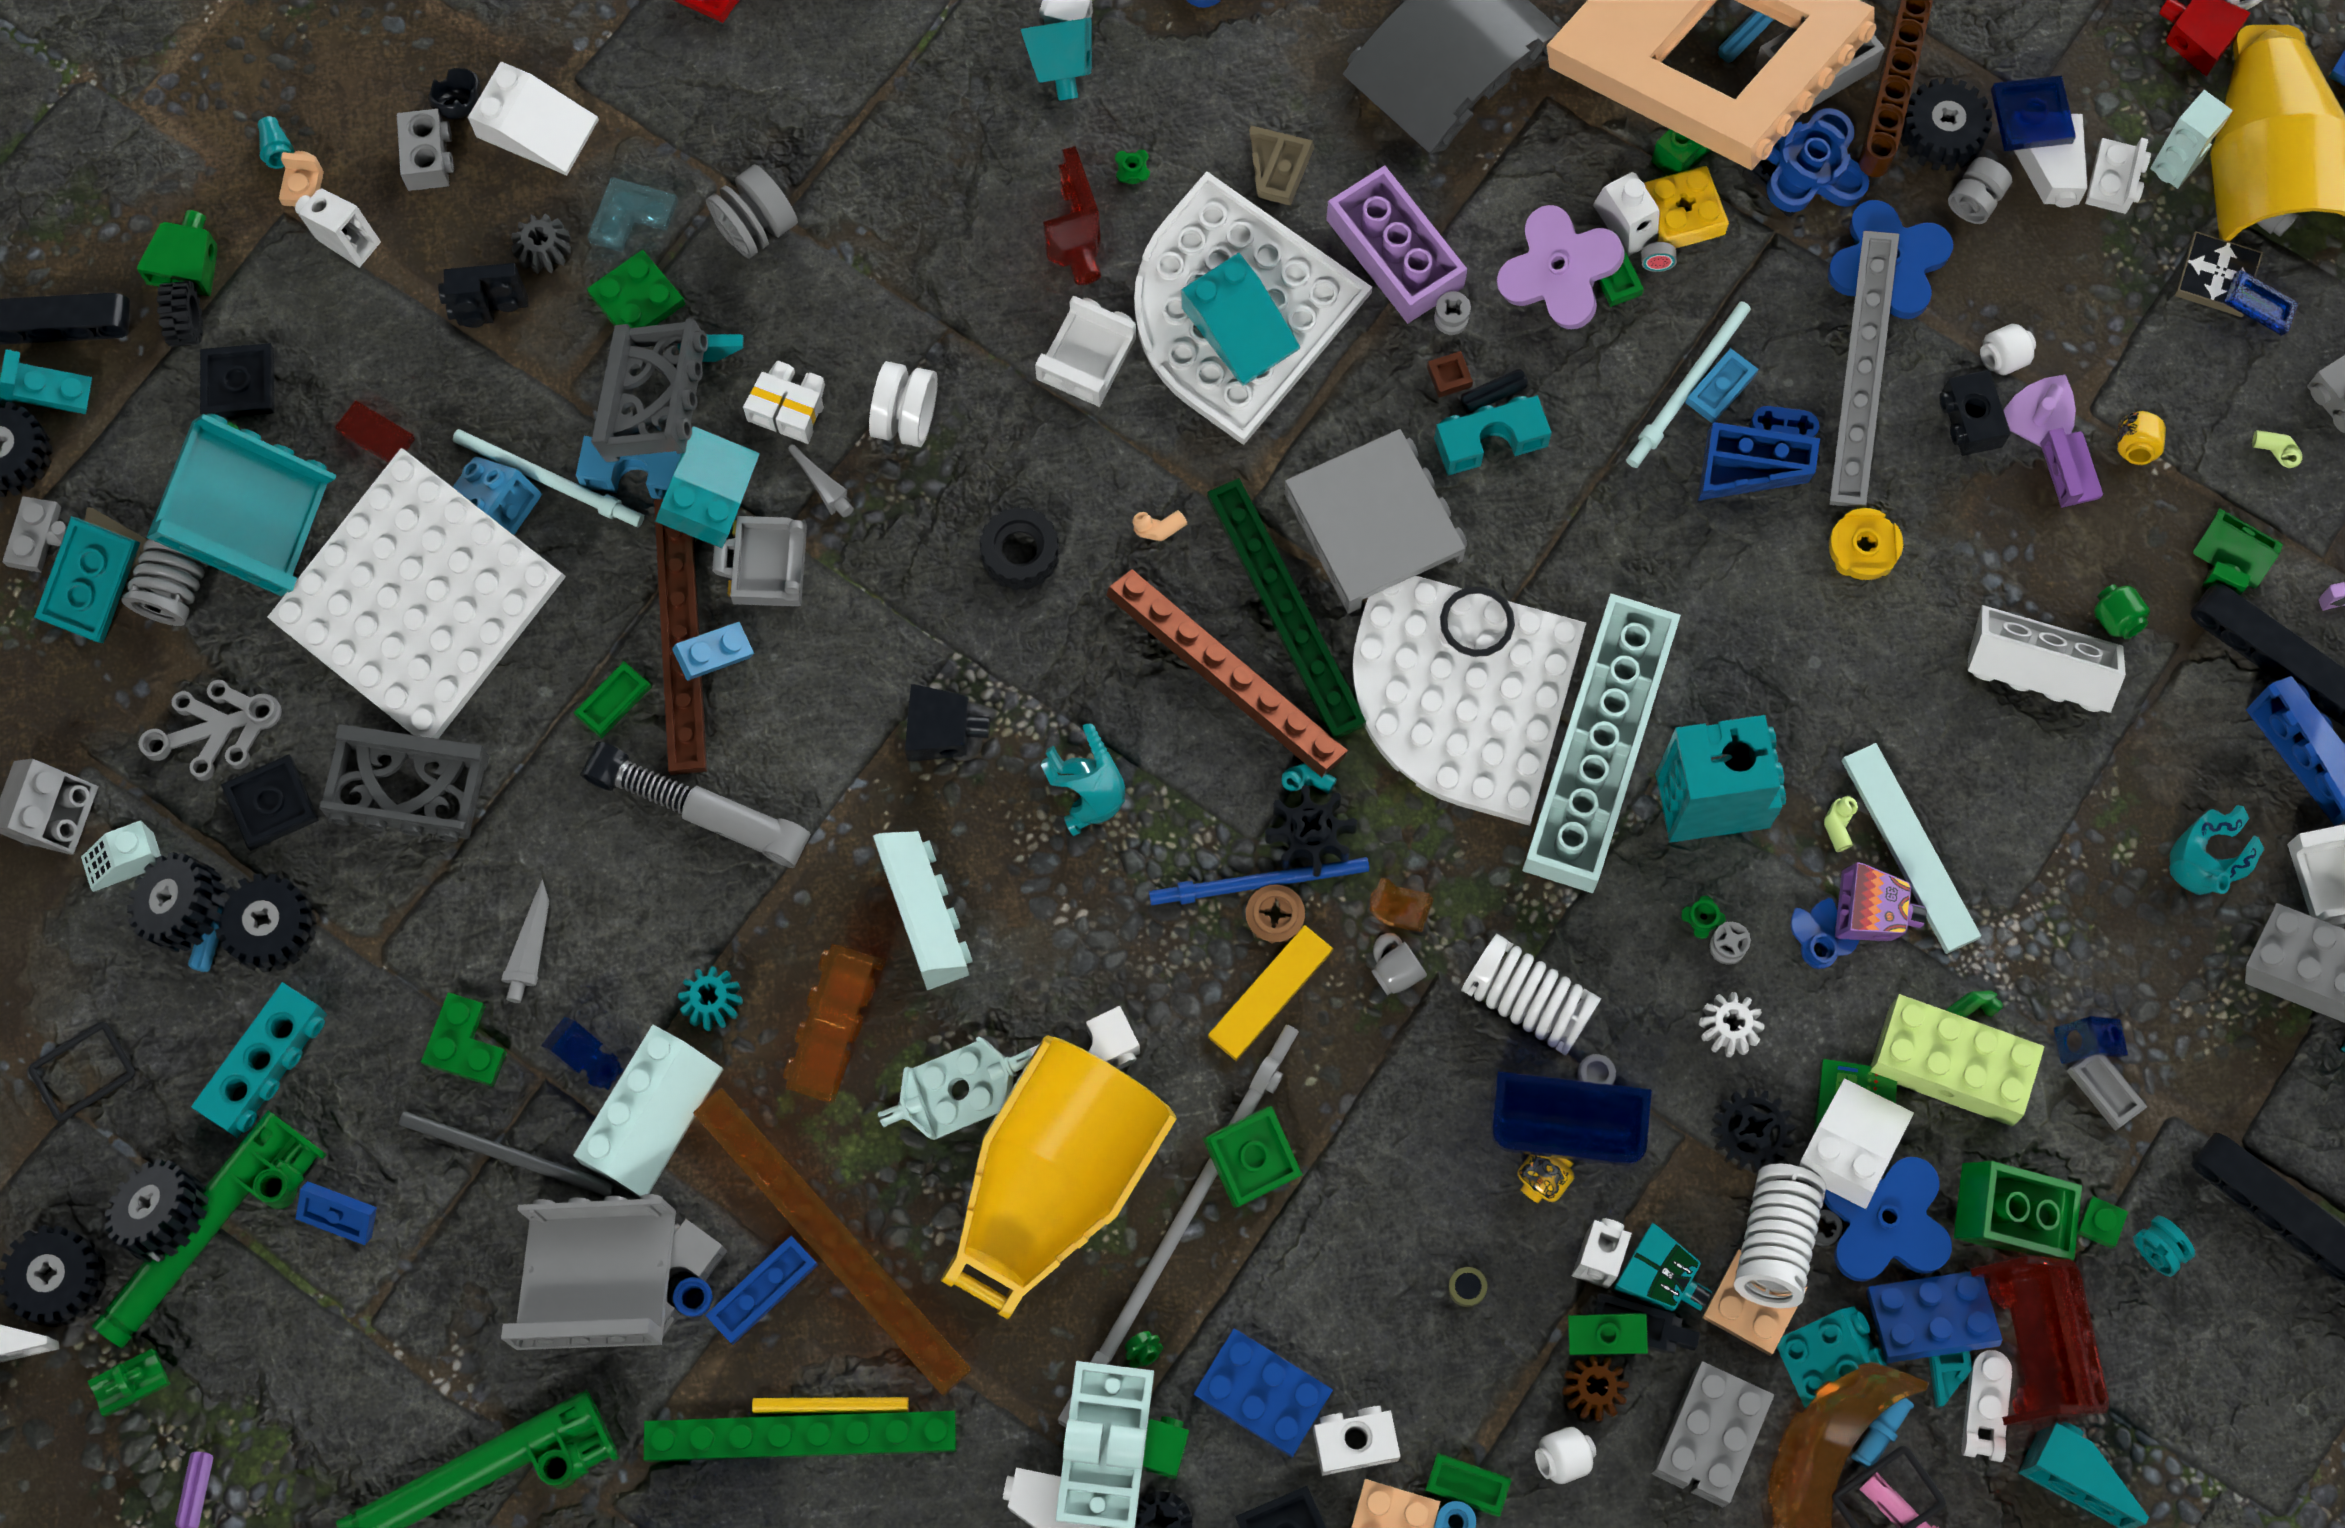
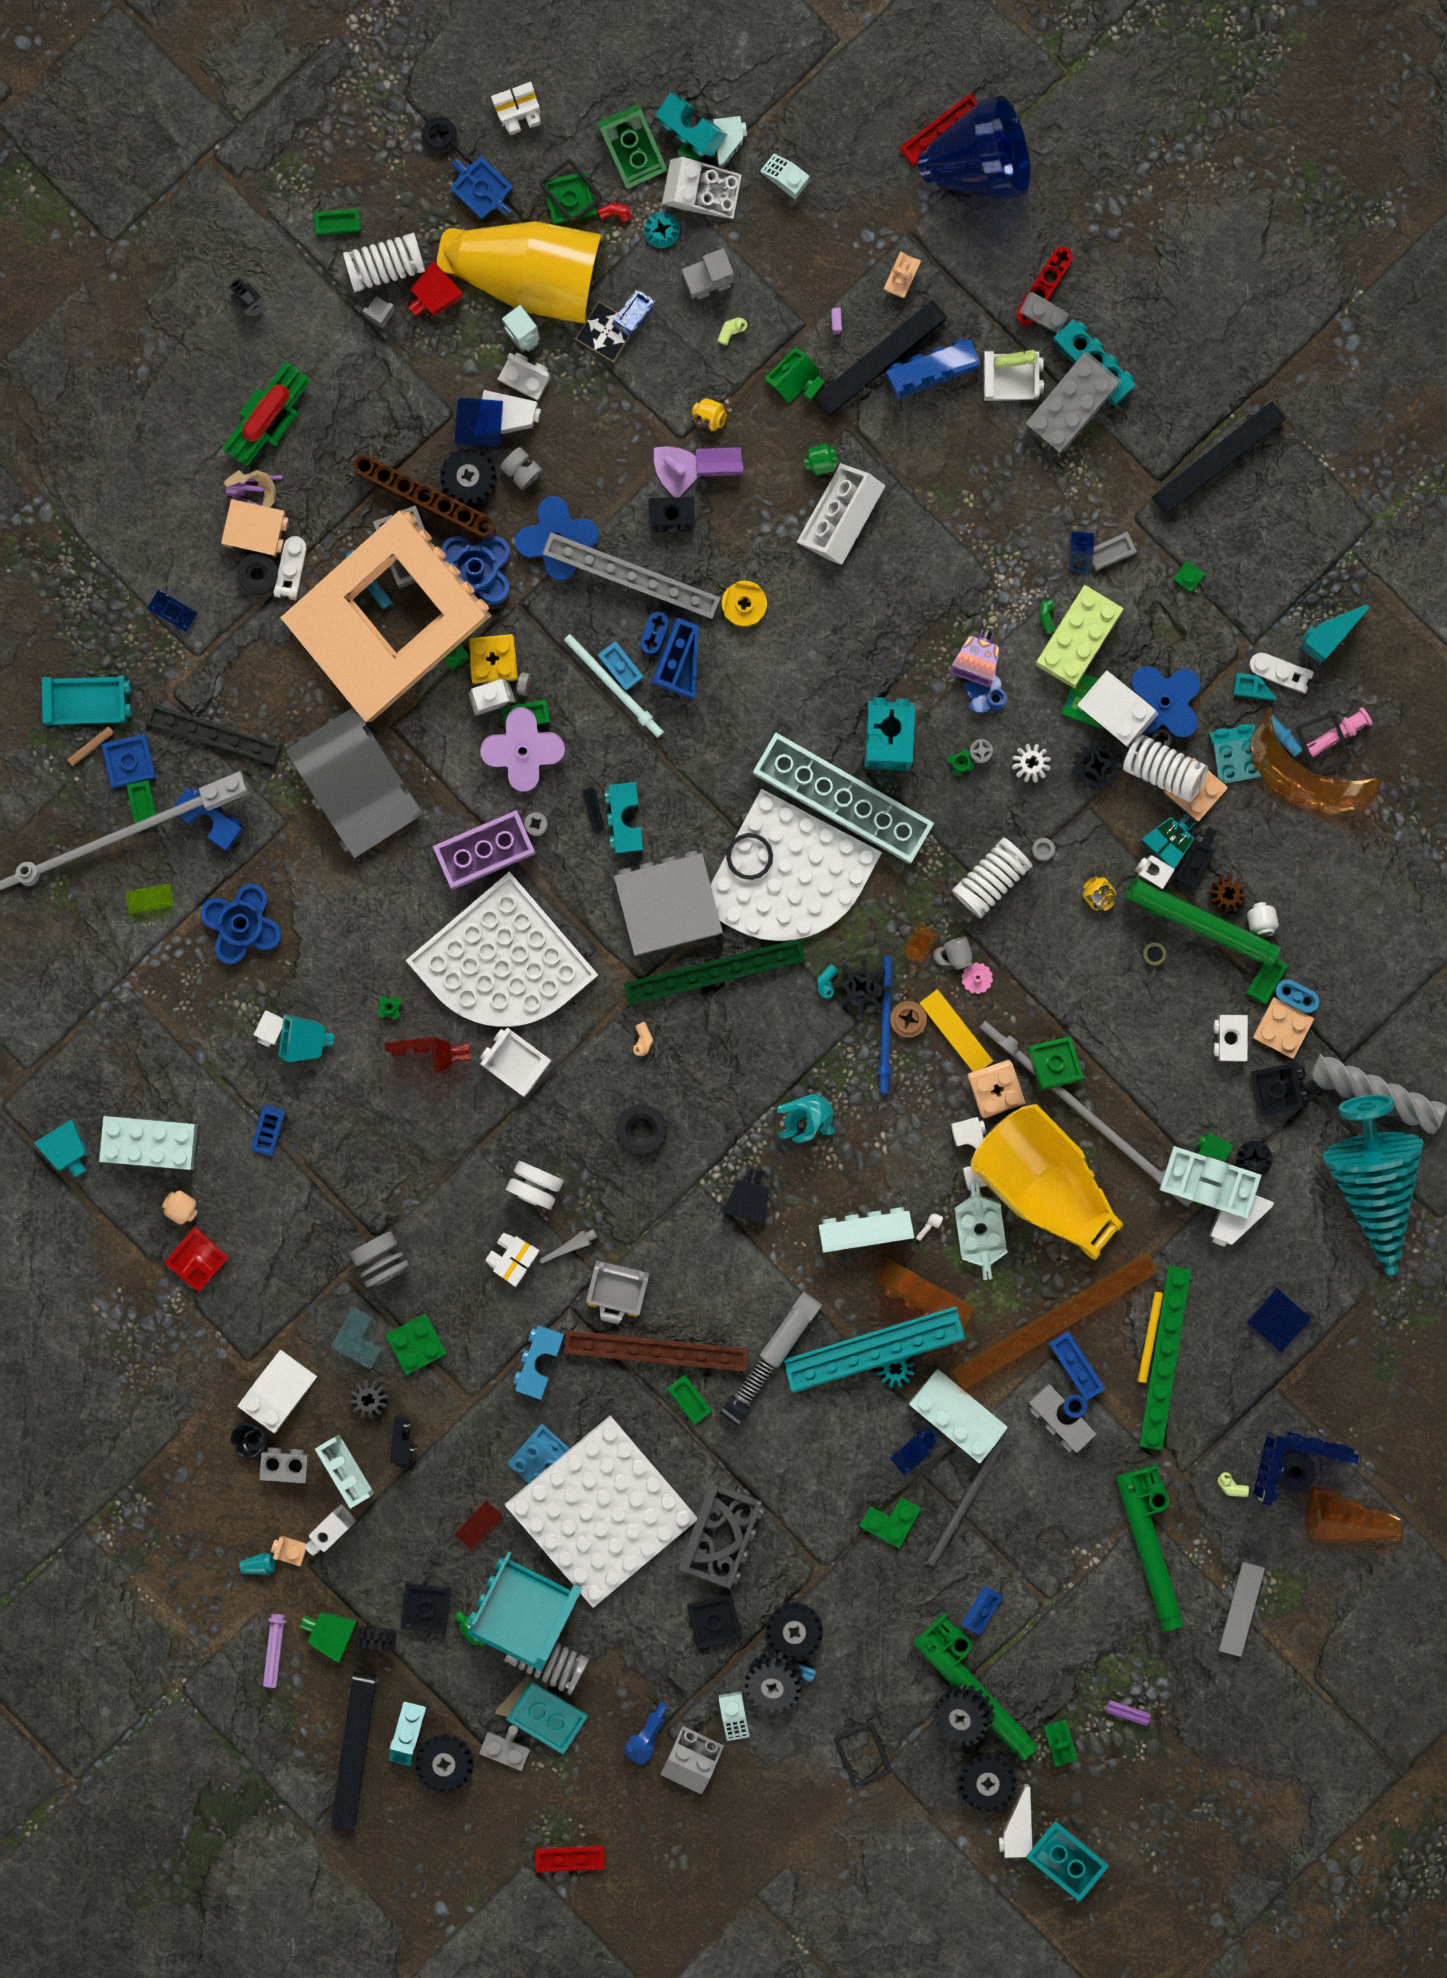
camera: 75 degrees left, 15 degrees up
(57, 727) = (641, 1746): none -> blue animal
(152, 187) = (273, 1650): none -> lavender axle
(217, 727) = (658, 1647): light grey plant -> none
(240, 1066) = (901, 1673): teal brick -> none
(424, 218) = (344, 1471): none -> light aqua window
(525, 958) = (844, 1476): light grey bar -> none
(594, 1273) = (1051, 1461): light grey panel -> none
(606, 505) = (560, 1382): light aqua bar -> none
(675, 404) = (470, 1357): dark grey fence -> none
(707, 487) = (566, 1316): teal slope -> none
(713, 651) = (673, 1331): dark azure plate -> none
(721, 346) = (465, 1300): teal tile -> none
(734, 956) = (874, 1349): none -> teal plate
(934, 52) = (271, 1110): none -> blue slope
(960, 1015) = (934, 1220): none -> white hand
(1143, 1349) = (1155, 1150): green plate -> none
(1214, 1076) = (983, 1083): none -> light nougat brick
(1227, 673) = (749, 1017): plate -> none
(1239, 319) = (520, 961): teal slope -> none
(1263, 1392) = (1192, 1085): blue plate -> none
(1278, 163) = (407, 912): dark tan wing -> none
(1364, 1010) = (977, 978): none -> bright pink piece
(1450, 374) = (578, 835): copper plate -> none
(1538, 1350) = (1168, 906): none -> green piece
(1569, 1119) = (1076, 874): clear blue windscreen -> none
(1607, 1334) = (1200, 880): green plate -> none
(1712, 1434) = (1267, 833): light grey piece -> none
(1837, 821) = (917, 667): yellowish green arm -> none
(1911, 848) = (942, 627): light aqua tile -> none
(1933, 1316) = (1225, 689): blue plate -> none
(2008, 349) = (634, 480): white head -> none
(2017, 1210) = (1174, 624): green slope -> none
(2052, 1339) = (1254, 624): clear red windscreen -> none
(2164, 1246) = (1211, 546): teal wheel -> none
(2197, 869) = (993, 459): teal piece -> none

